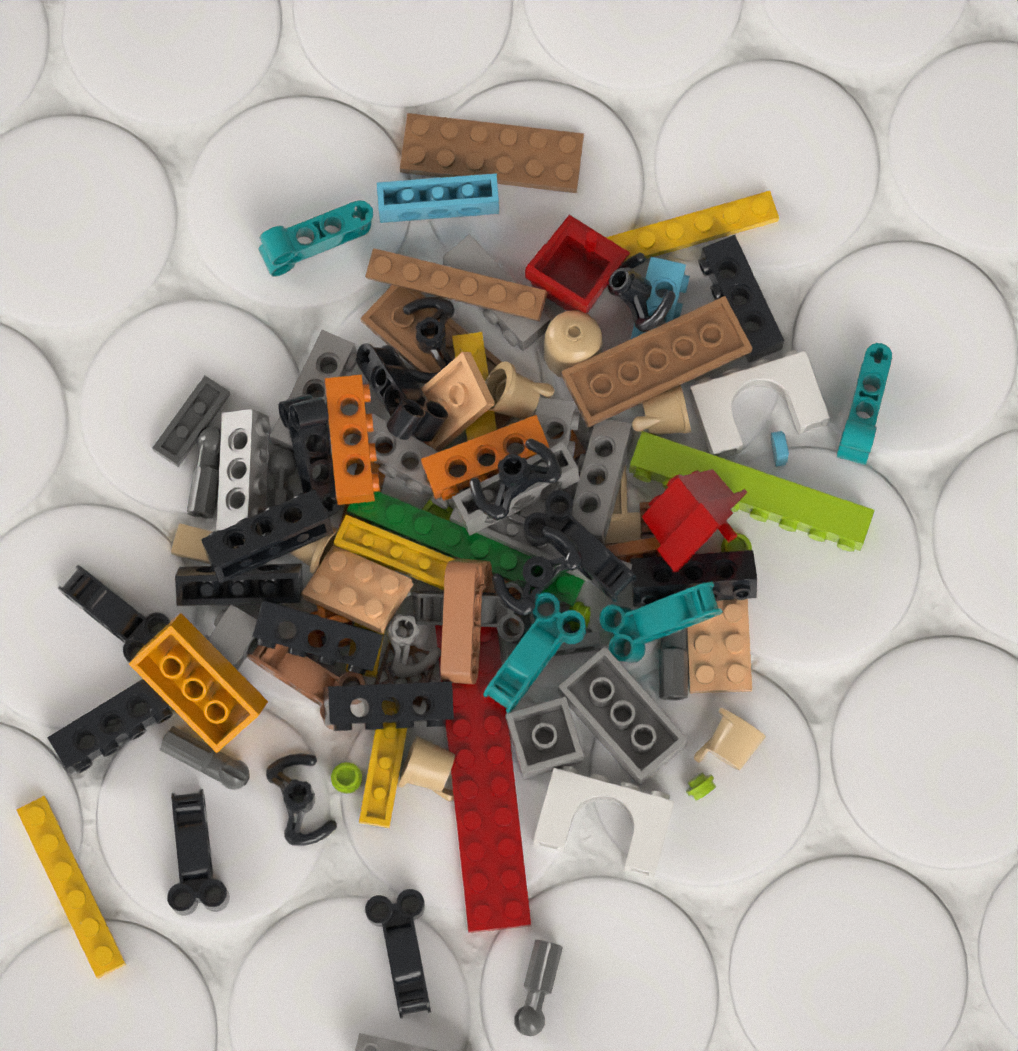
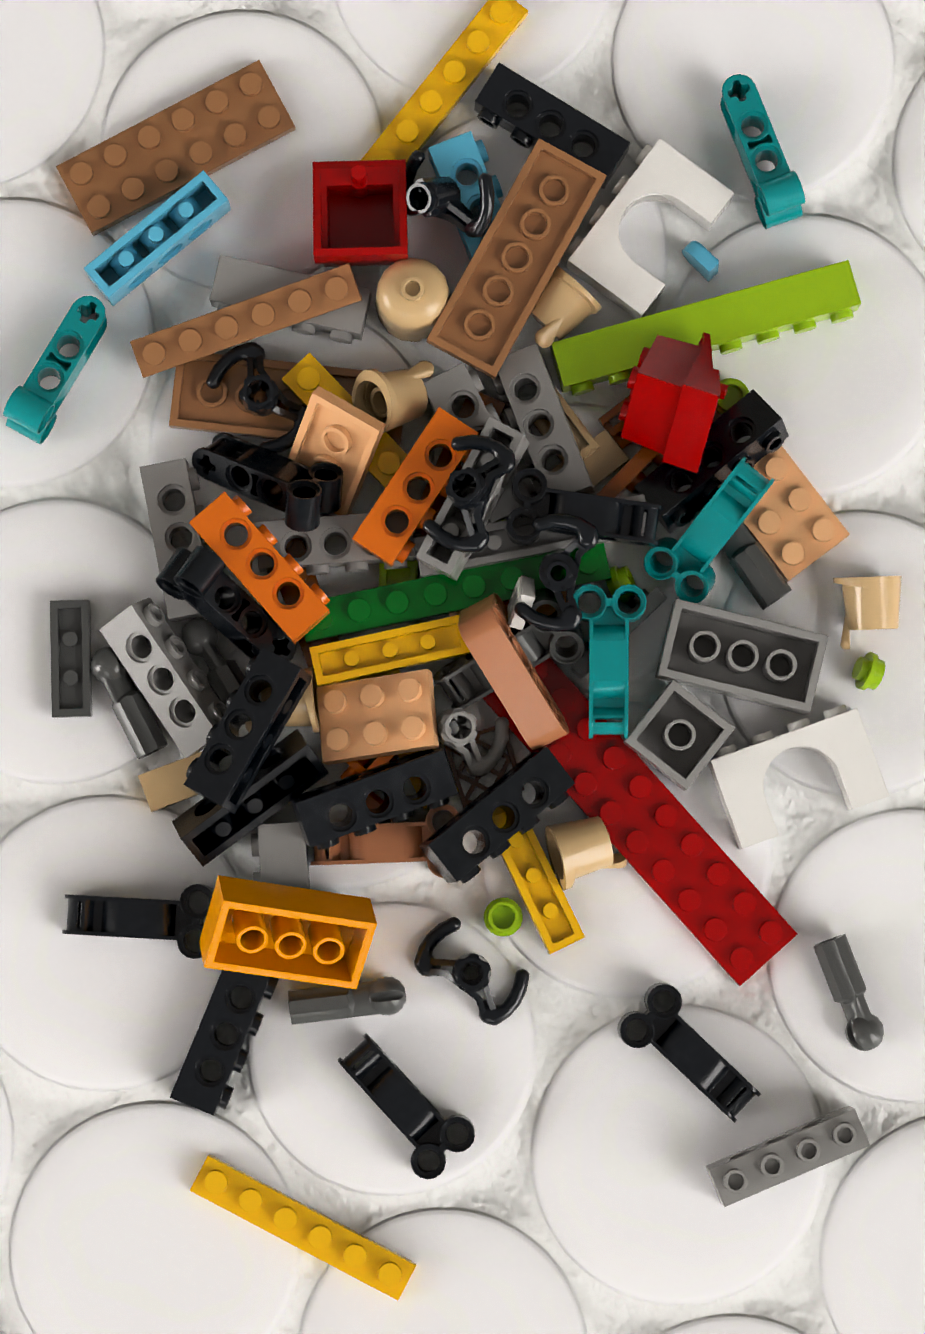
camera: 40 degrees left, 10 degrees up
(507, 573) = (523, 592): none -> white tile

